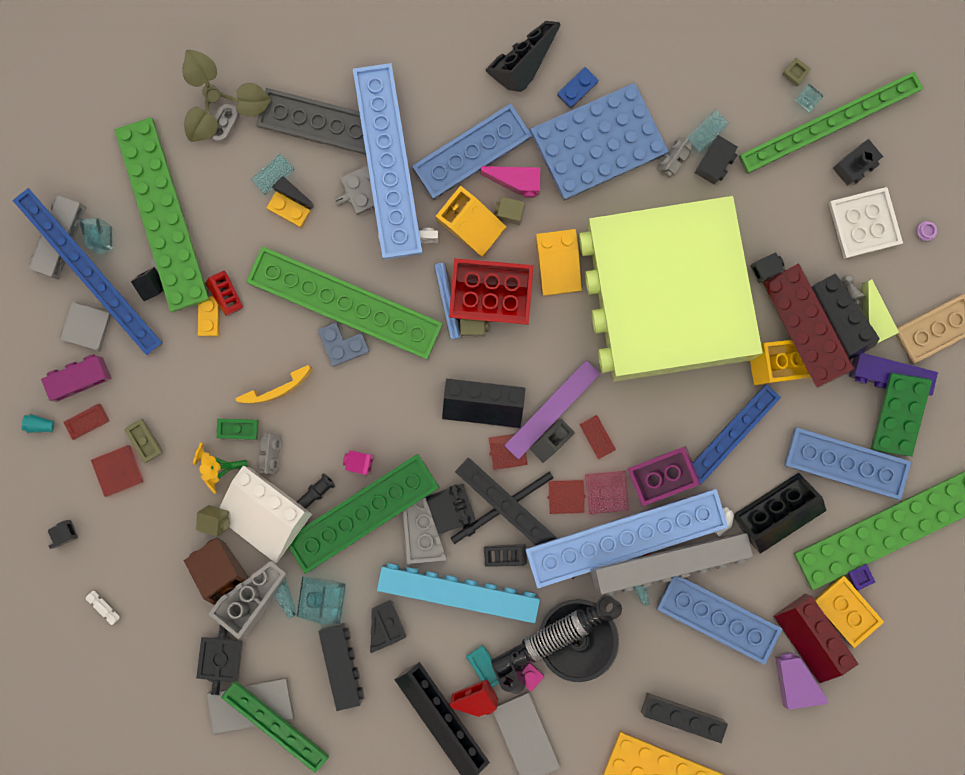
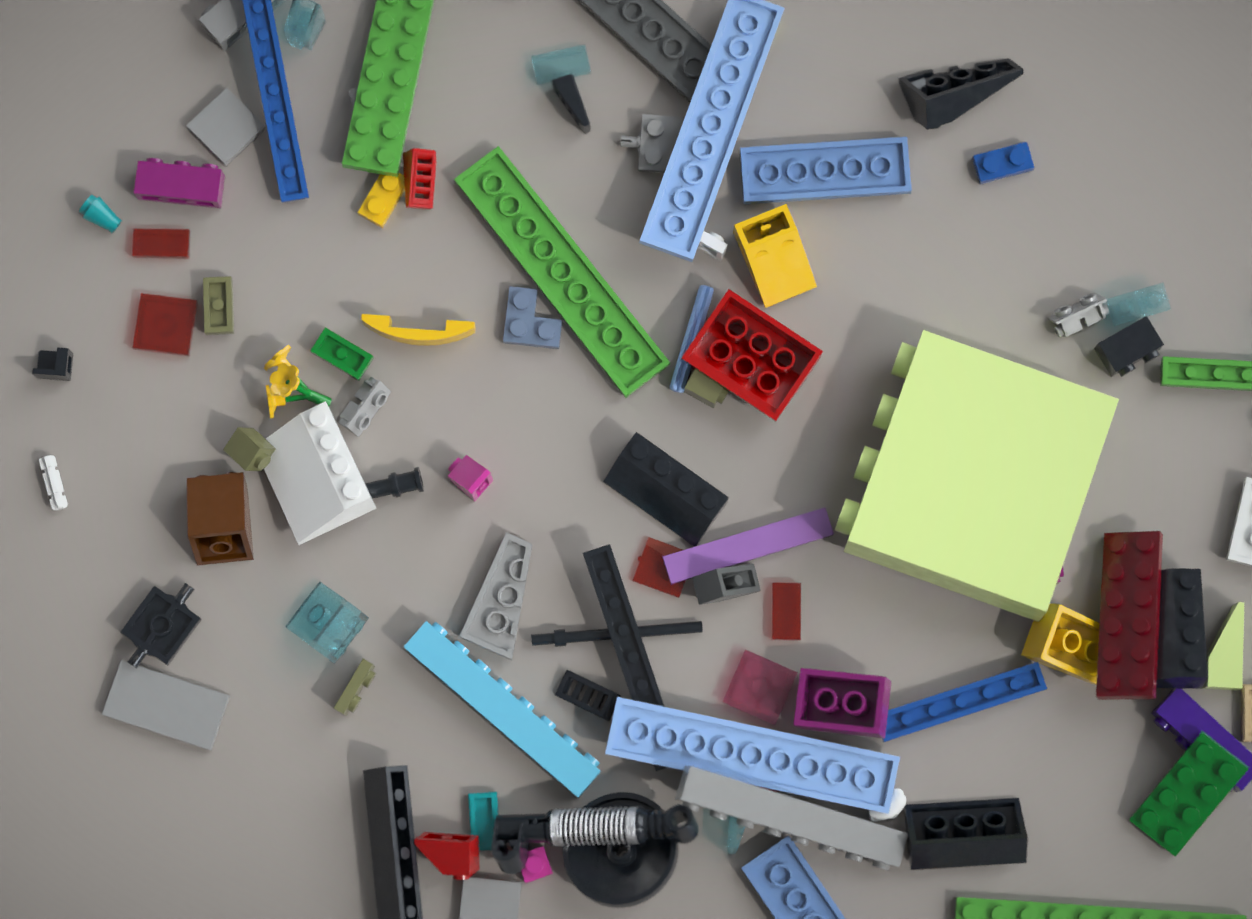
camera: 30 degrees right, 5 degrees down
(148, 284) = (332, 116): black panel -> none
(247, 602) = (237, 572): light grey wedge -> none
(275, 726) = (184, 746): green plate -> none
(285, 600) = (283, 586): clear light blue slope -> none
(288, 209) = (556, 119): yellow plate -> none
(340, 666) = (305, 718): black brick -> none
(361, 622) = (362, 677): none -> olive plate
(362, 513) = (439, 542): green plate -> none
(385, 626) = (388, 700): black wing -> none
(450, 509) = (552, 598): black hinge -> none
(509, 210) = (832, 268): olive brick -> none
(517, 179) = (864, 237): dark pink slope -> none
(558, 262) = (858, 366): yellow slope -> none
(566, 497) = (705, 665): clear red piece -> none
(599, 141) = (992, 243): medium blue plate -> none
(768, 267) = (1121, 516): black brick -> none
(847, 463) = (1087, 820): medium blue plate -> none
(856, 294) = (1213, 610): light grey piece -> none

